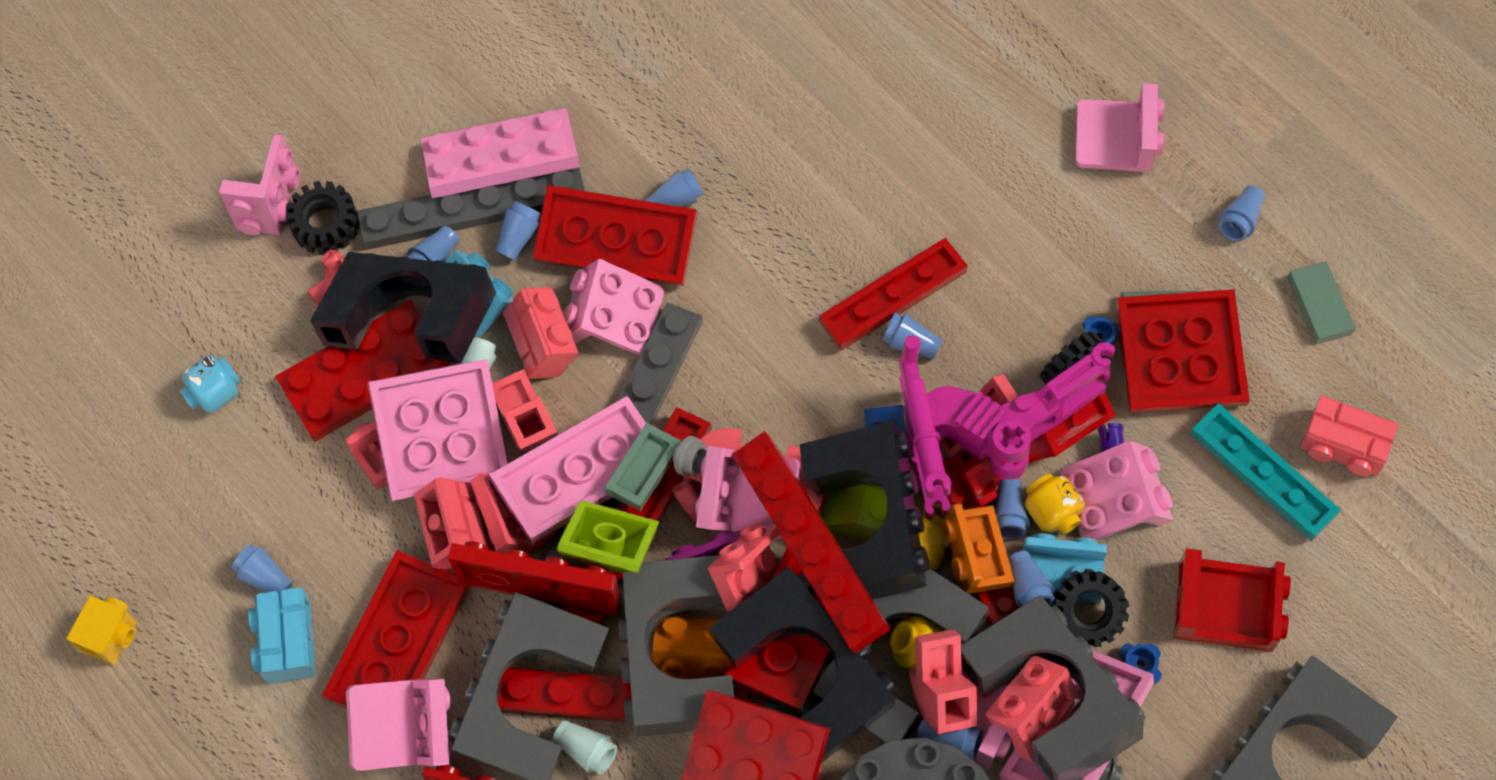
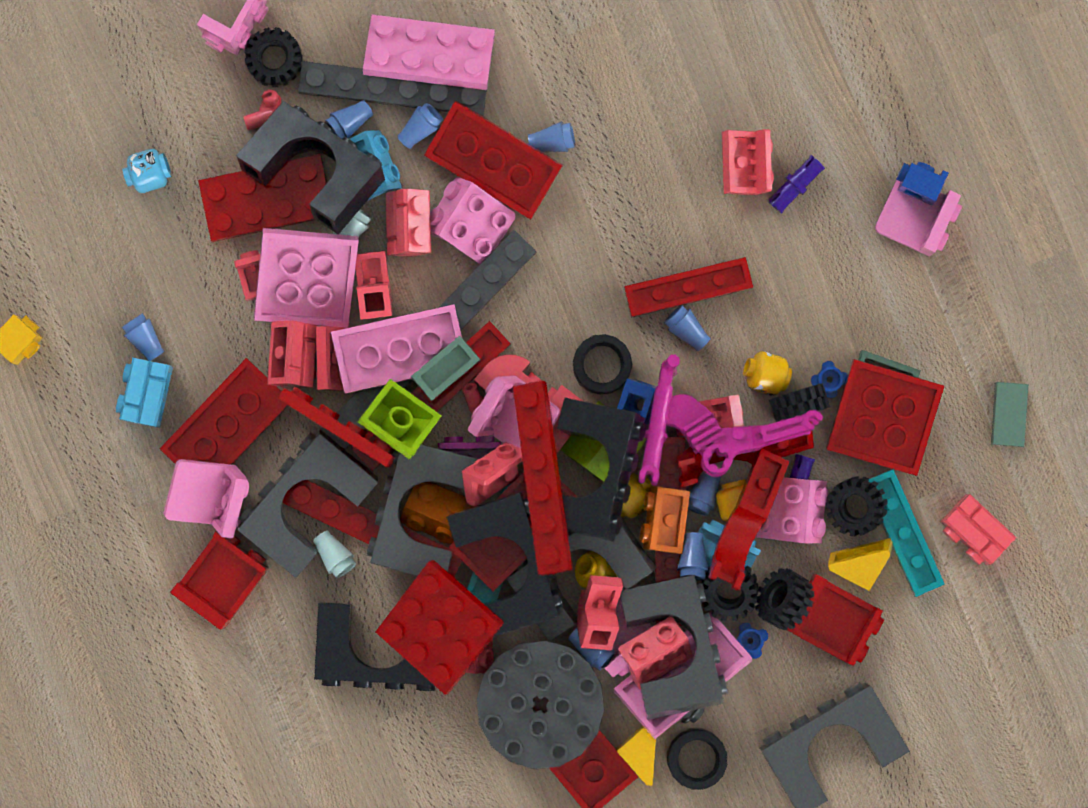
camera: 15 degrees right, 20 degrees up
(689, 456) = (482, 373): light grey plate -> none
(826, 382) = (596, 341): none -> black tyre
(905, 142) = (747, 162): none -> coral bracket
(968, 147) = (796, 184): none -> dark purple pin
(1024, 350) = (767, 373): none -> yellow head
(1075, 506) = (747, 517): none -> red piece
(1106, 92) = (921, 182): none -> blue brick
(1161, 591) = (787, 612): none -> black tyre
(1220, 464) = (844, 519): none -> black tyre
(1234, 519) = (861, 563): none -> yellow slope
(1241, 216) = (982, 321): medium blue cone -> none

